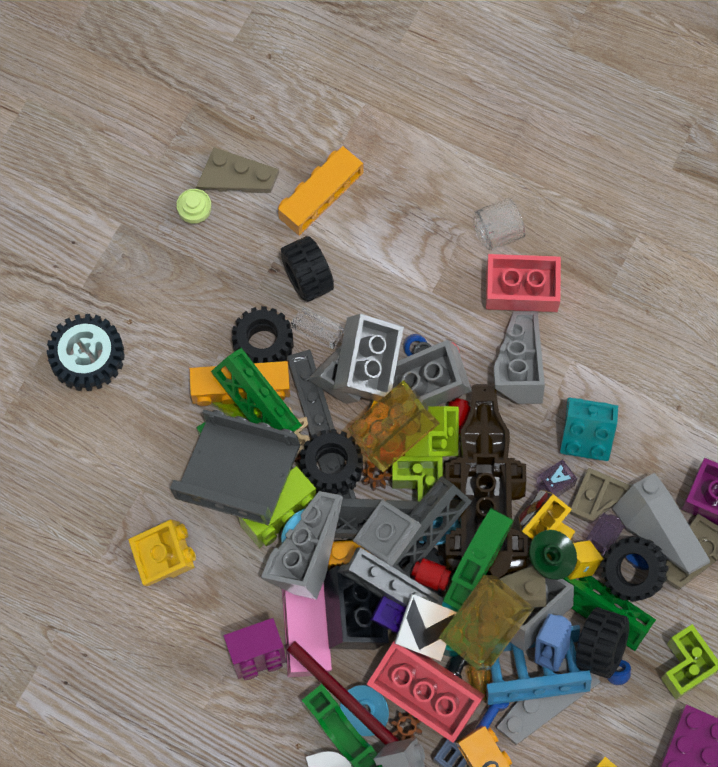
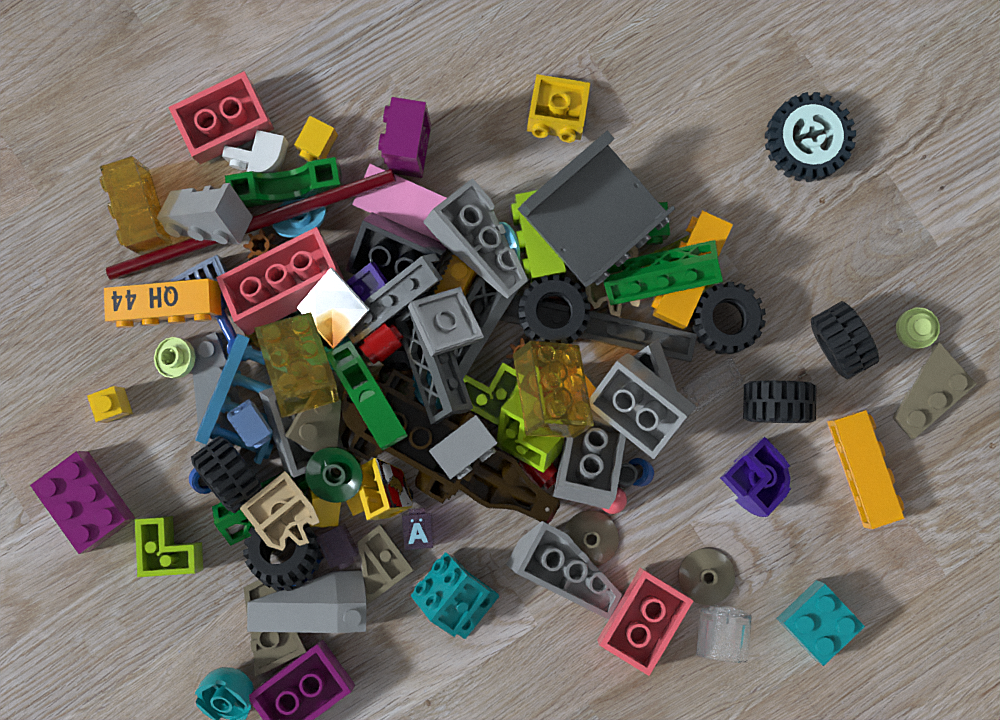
camera: 125 degrees right, 15 degrees up
(234, 247) = (845, 340): none -> black tyre
(294, 733) = (315, 140): none -> yellow brick
(371, 257) = (759, 478): none -> dark purple brick
(450, 166) = (820, 622): none -> teal brick
(464, 270) = (692, 576): none -> dark tan dish
(473, 358) = (602, 527): none -> dark tan dish
(475, 466) = (463, 448): none -> light grey piece
(536, 745) = (174, 357): none -> yellowish green plate
(606, 579) = (280, 512): none -> tan plate

